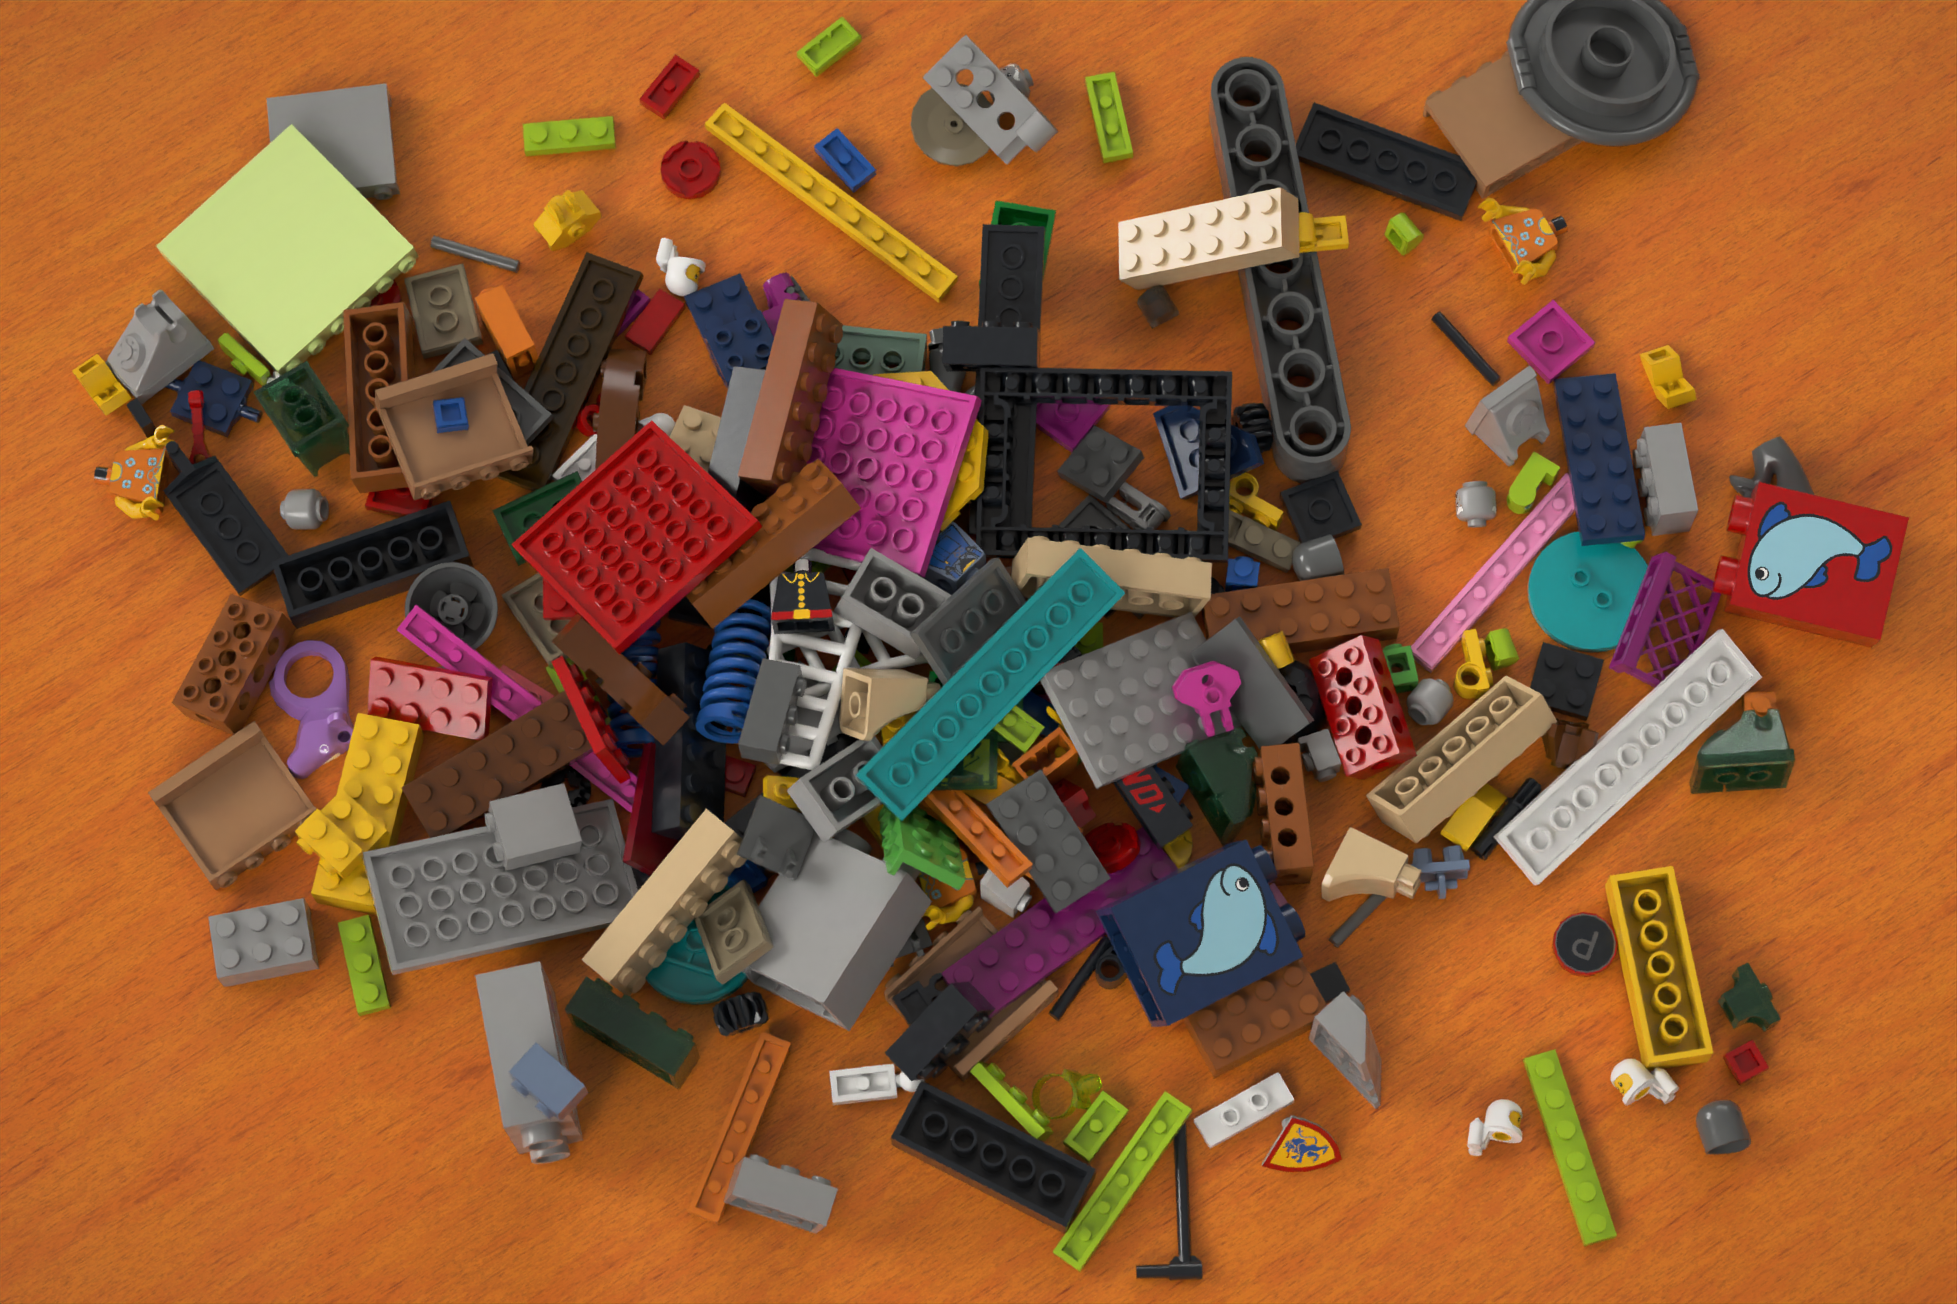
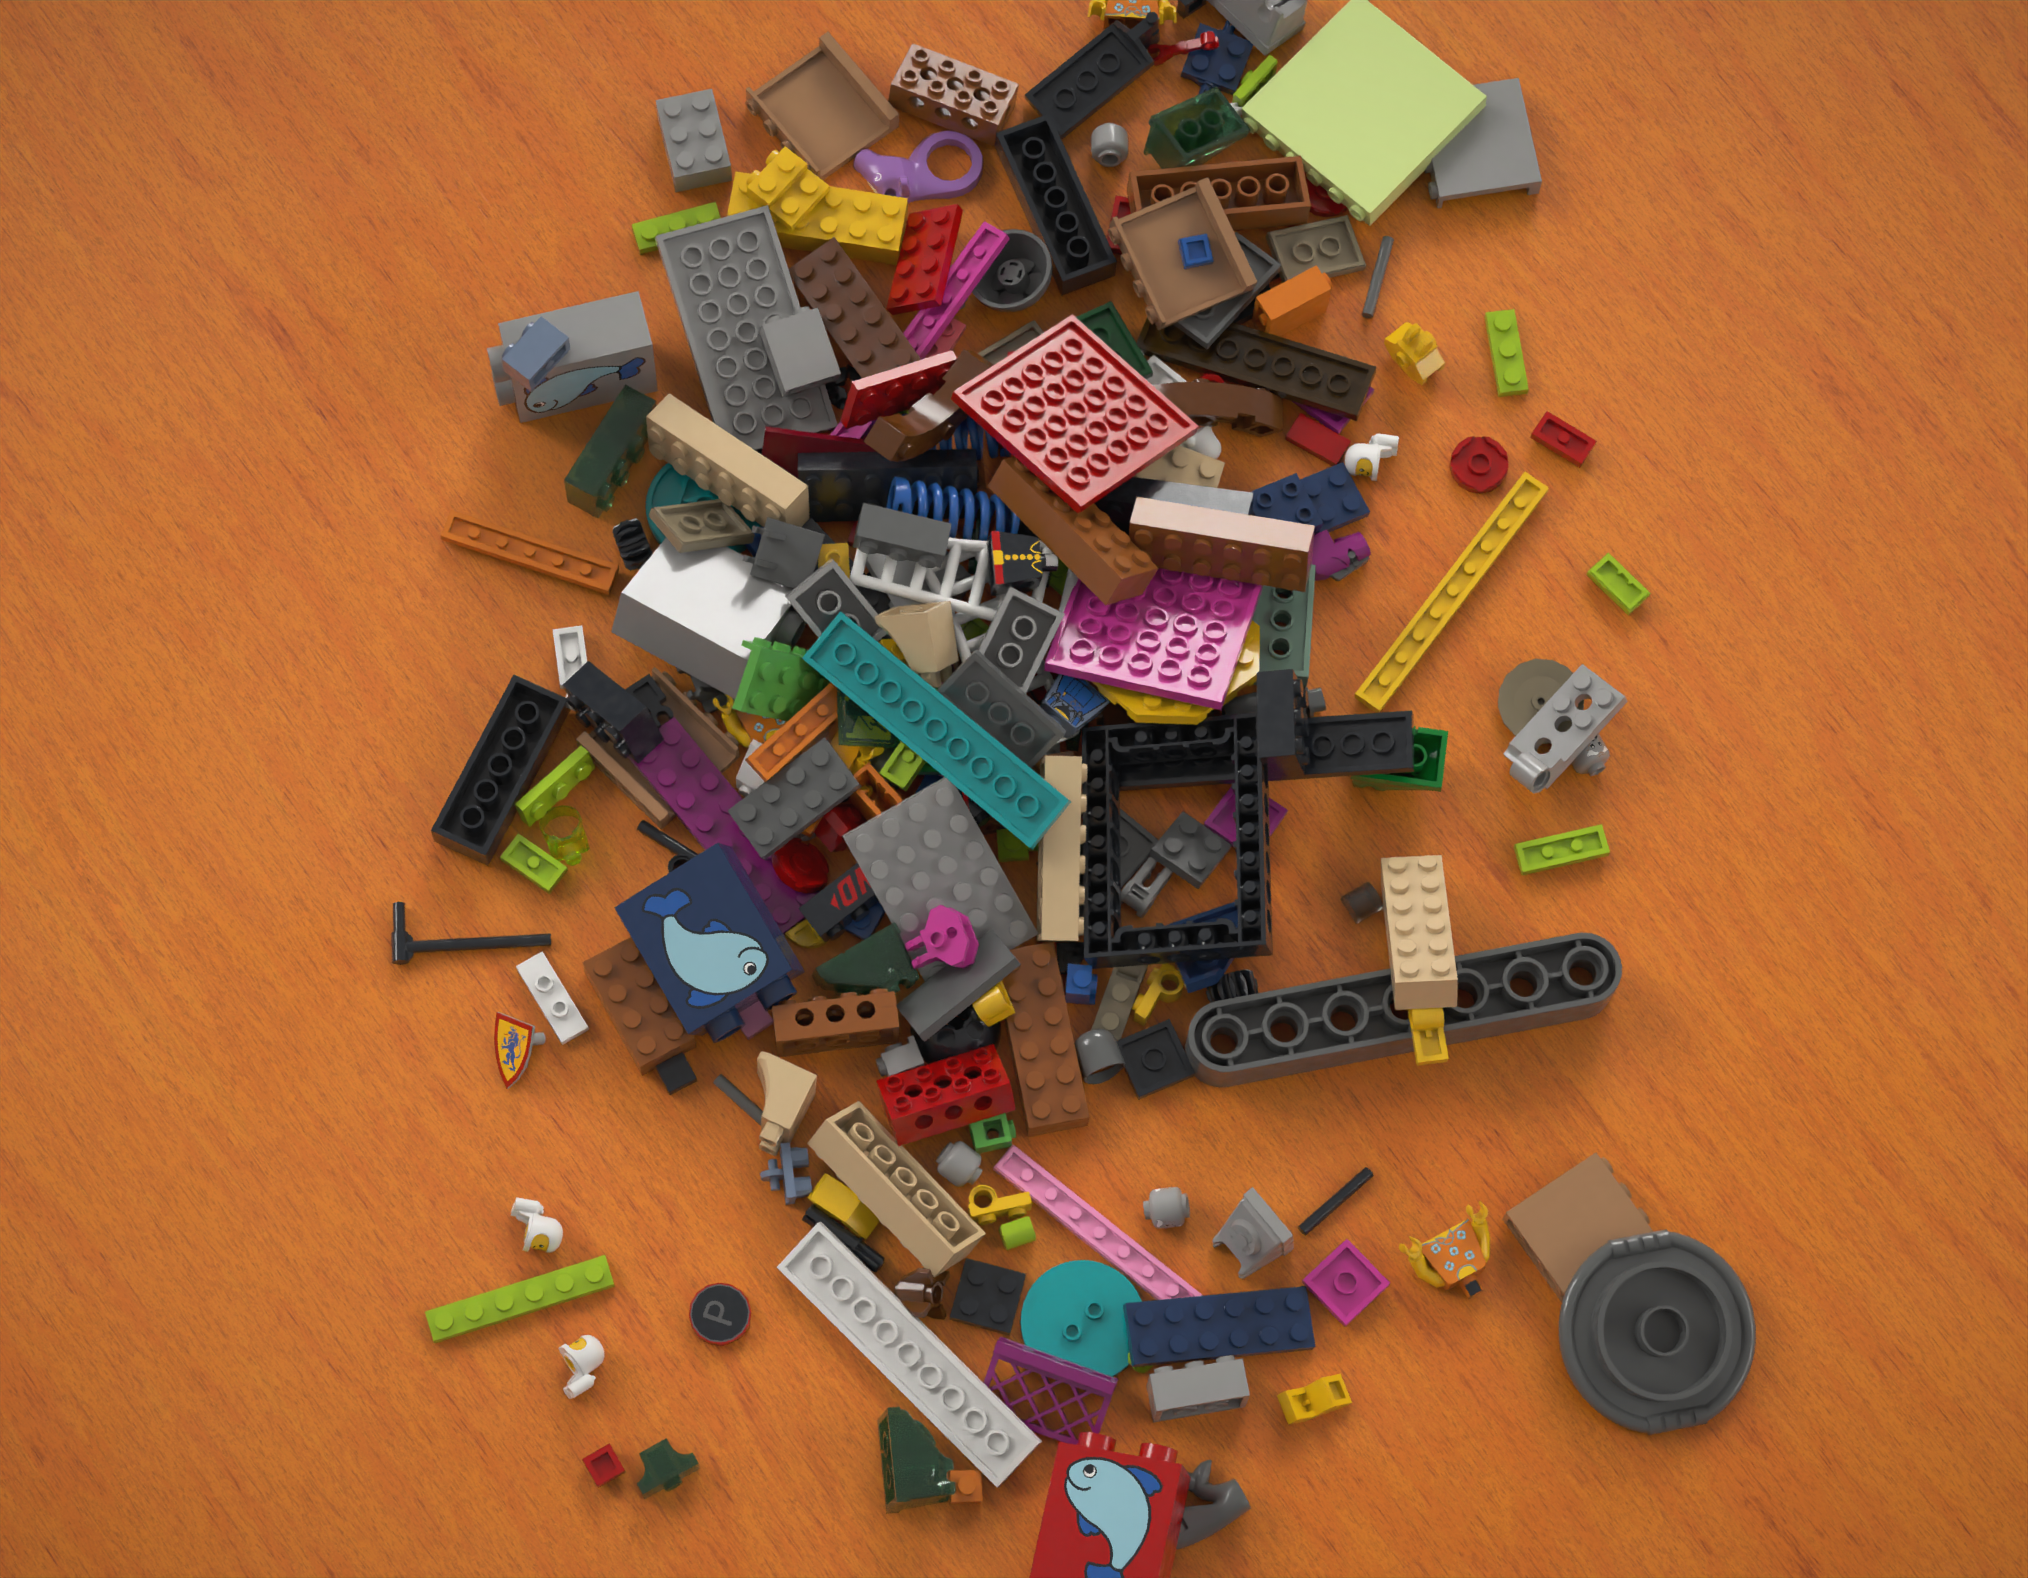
camera: 80 degrees right, 0 degrees up
(781, 1193) = (461, 582): light grey brick -> none
(845, 160) = (1497, 603): blue plate -> none
(1122, 1181) = (481, 887): lime plate -> none
(1348, 1043) = (605, 1086): light grey wedge -> none
(1386, 161) = (1533, 1118): black plate -> none
(1403, 233) = (1455, 1137): lime brick -> none
(1529, 480) = (1192, 1259): lime leg -> none
(1658, 968) = (692, 1378): yellow brick -> none
(1722, 1128) = (537, 1438): dark grey helmet -> none

